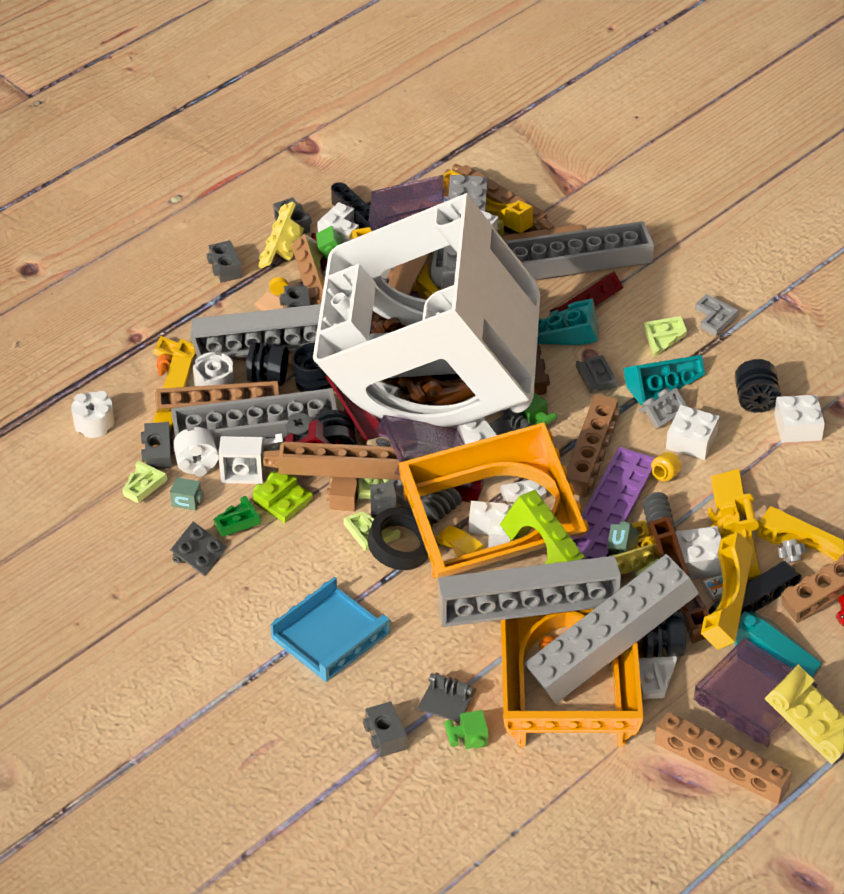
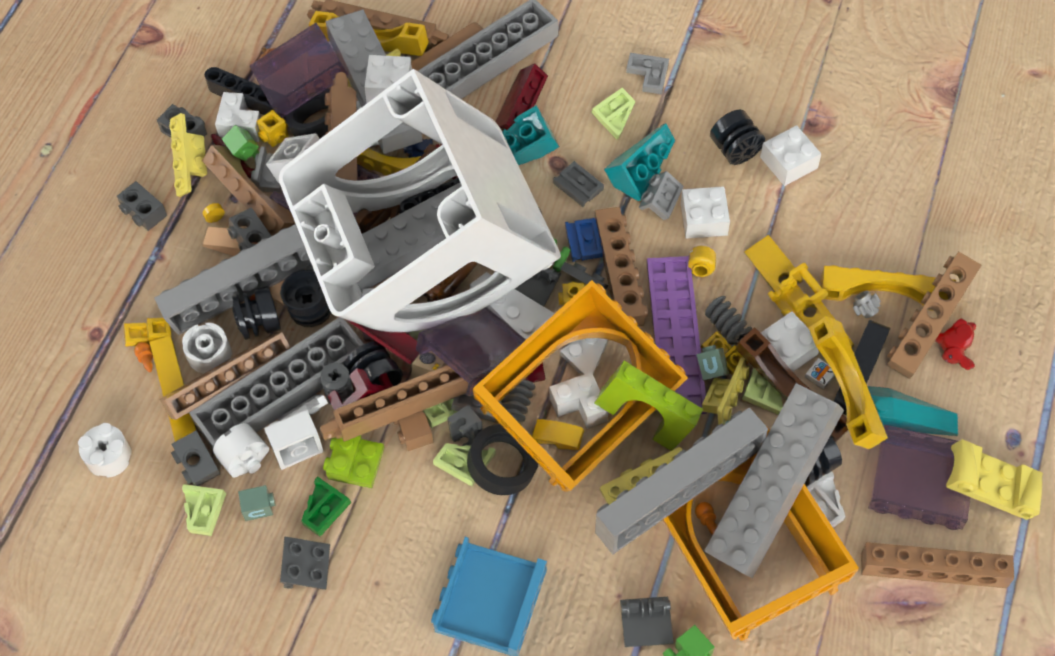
camera: 25 degrees left, 15 degrees up
(563, 446) = (578, 272): none -> dark grey plate
(572, 414) = (584, 239): none -> blue plate

